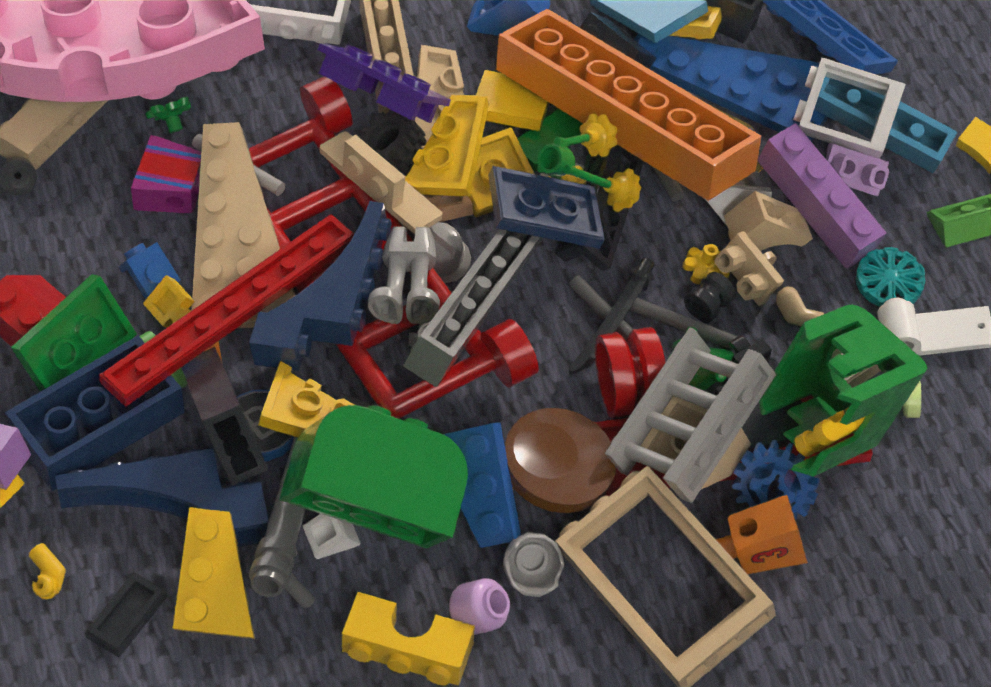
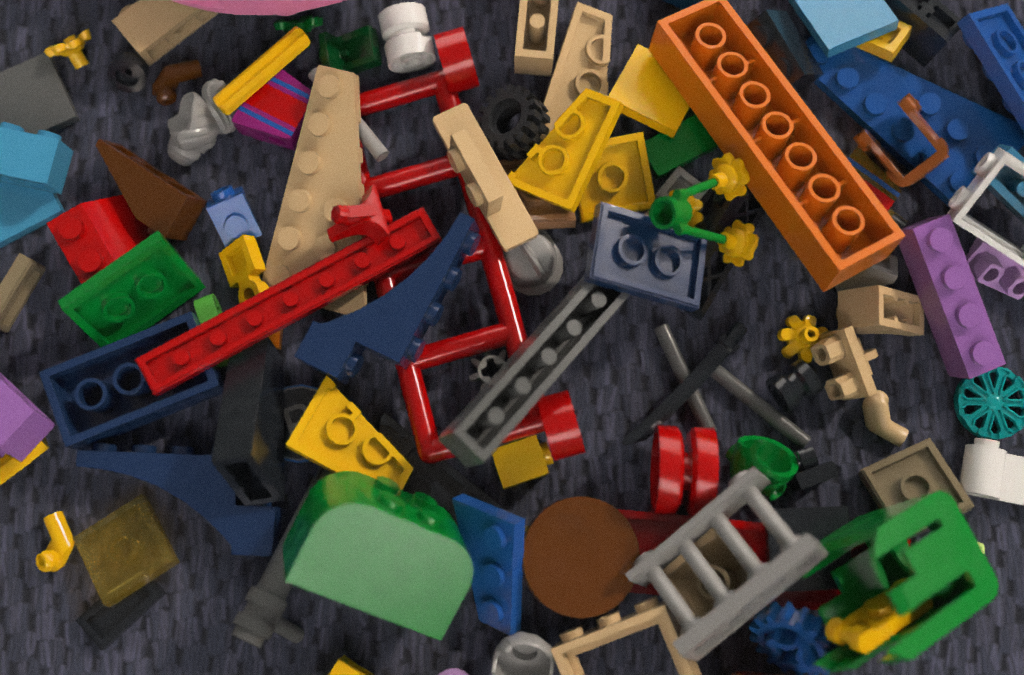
camera: 20 degrees right, 25 degrees up
(54, 181) = (171, 76): none -> reddish brown arm
(66, 258) = (151, 193): none -> reddish brown slope
(97, 199) = (197, 124): none -> light grey hair
(120, 560) = (125, 550): none -> clear yellow tile
(150, 141) = (261, 70): none -> yellow axle
(211, 578) = (203, 599): yellow wing -> none
(231, 111) = (351, 51): none -> dark green bracket
(274, 100) = (405, 32): none -> white wheel
(277, 229) = (362, 219): none -> red piece
(399, 93) = (532, 78): dark purple brick -> none
(404, 257) = (478, 281): light grey piece -> none
(480, 403) = (522, 461): none -> yellow brick
(764, 105) = (868, 143): none -> dark orange piece

